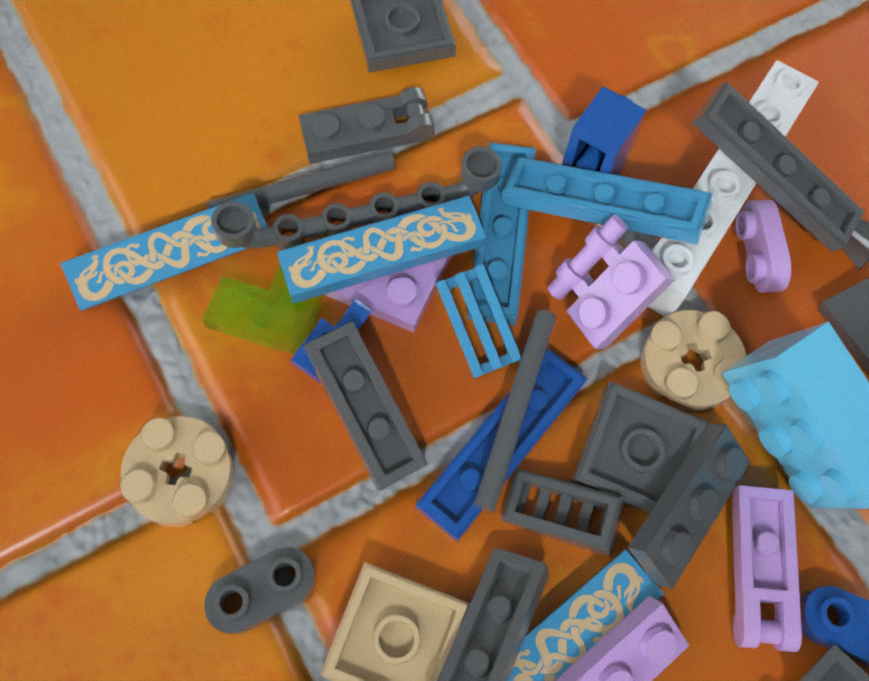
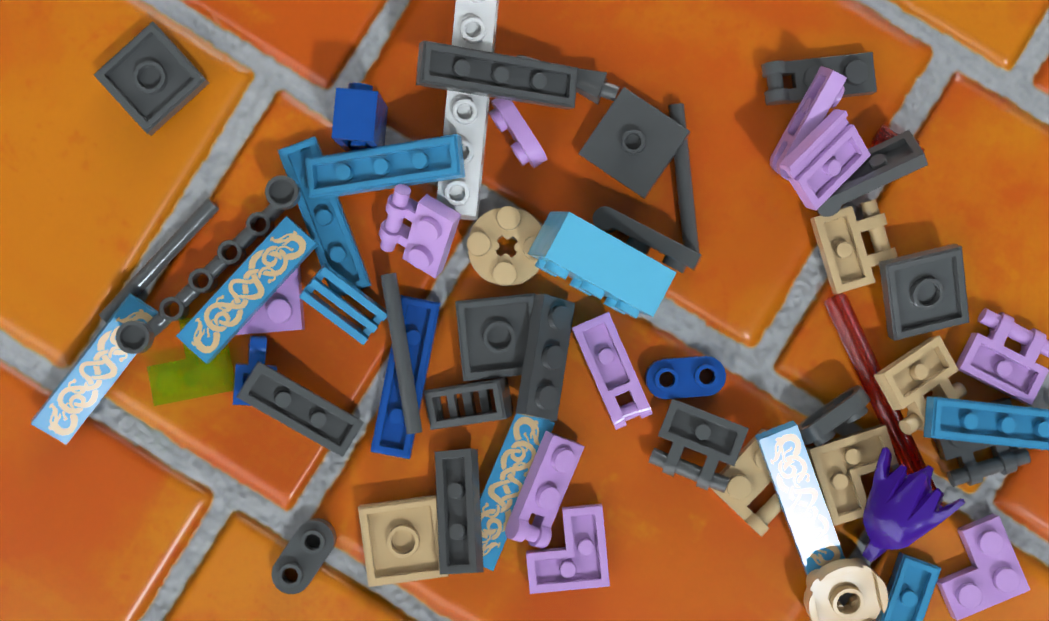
camera: 25 degrees left, 20 degrees up
(191, 498) = (189, 531): tan plate -> none
(366, 126) = (176, 186): dark grey plate -> none

